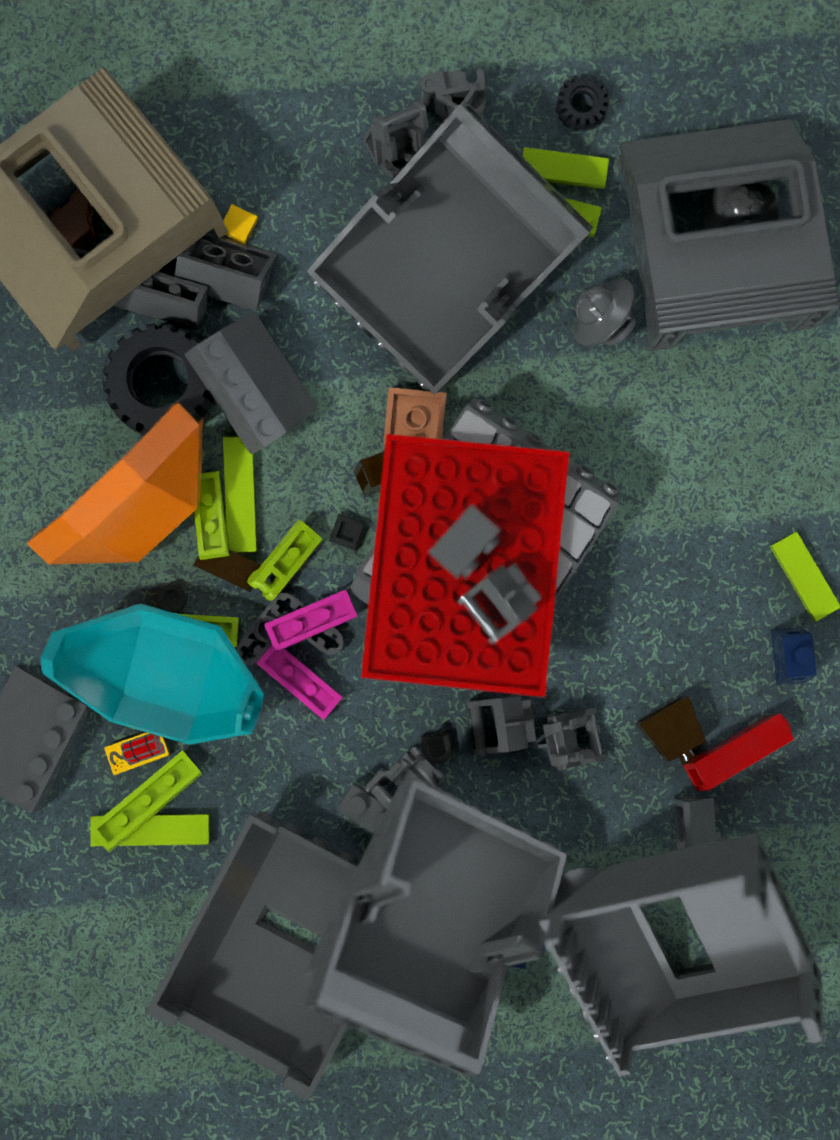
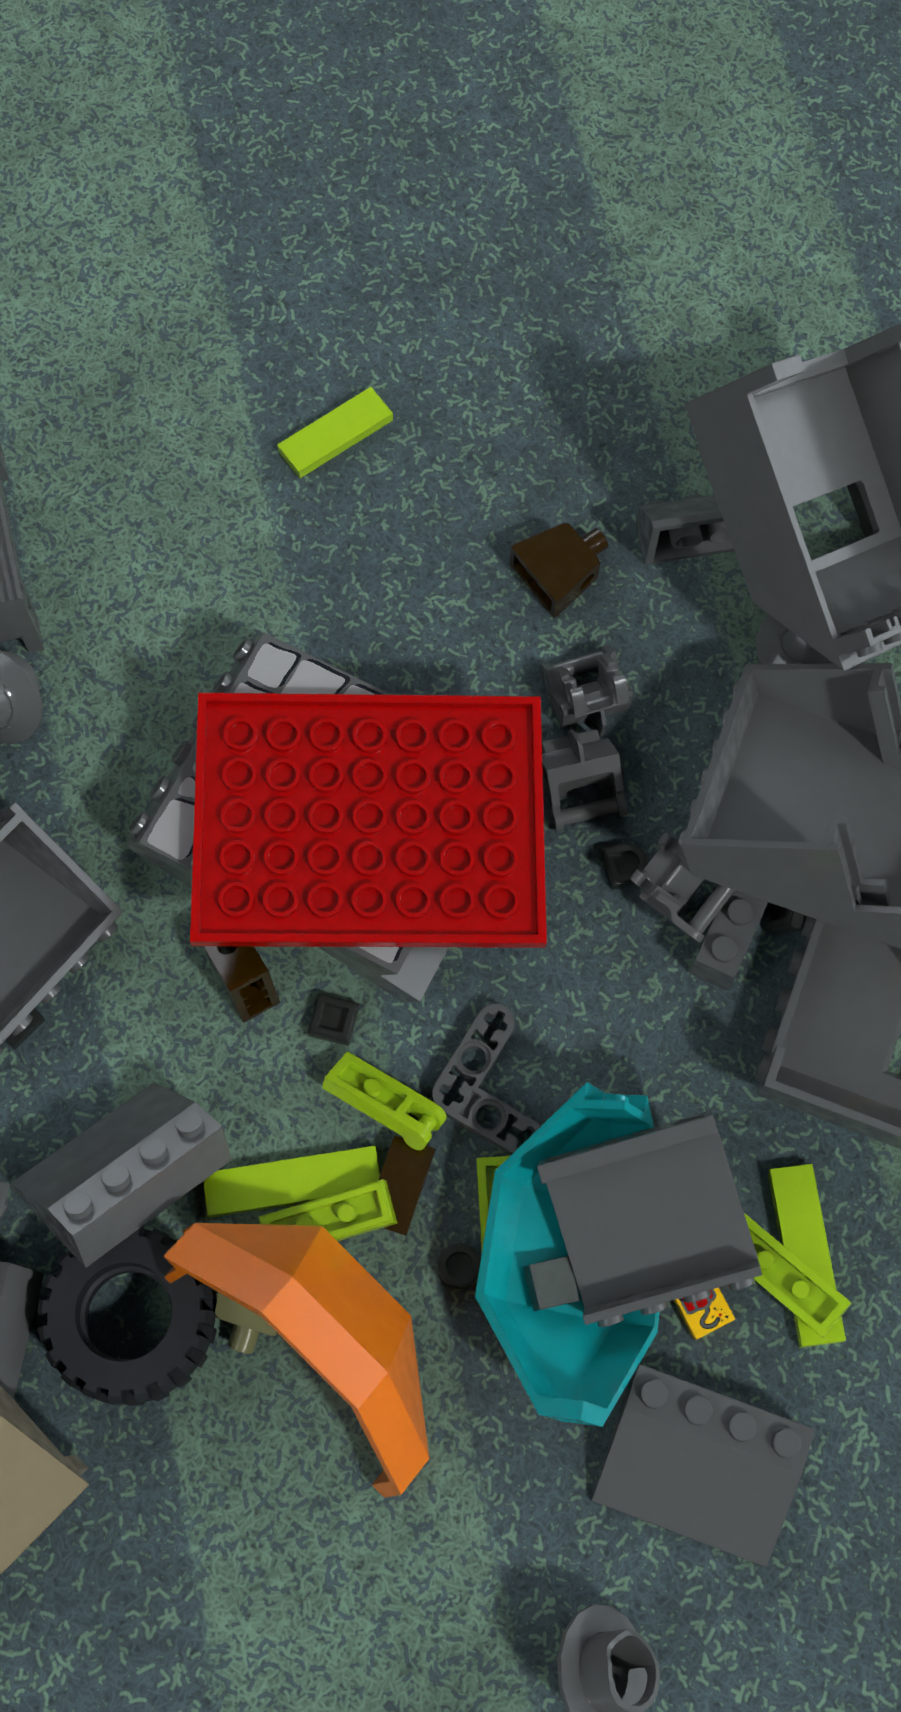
camera: 95 degrees left, 15 degrees down
(147, 656) = (551, 1283): none -> pearl dark grey tile
(175, 726) = (651, 1219): none -> dark grey panel
(300, 681) = (556, 1060): dark pink plate -> none
(310, 620) = (469, 1048): dark pink plate -> none
(415, 413) = (156, 942): nougat plate -> none
(465, 542) = (341, 803): dark grey brick -> none
(510, 595) = (407, 742): dark grey piece -> none
(738, 752) = (576, 483): red brick -> none
(793, 655) = (439, 431): dark blue torso -> none

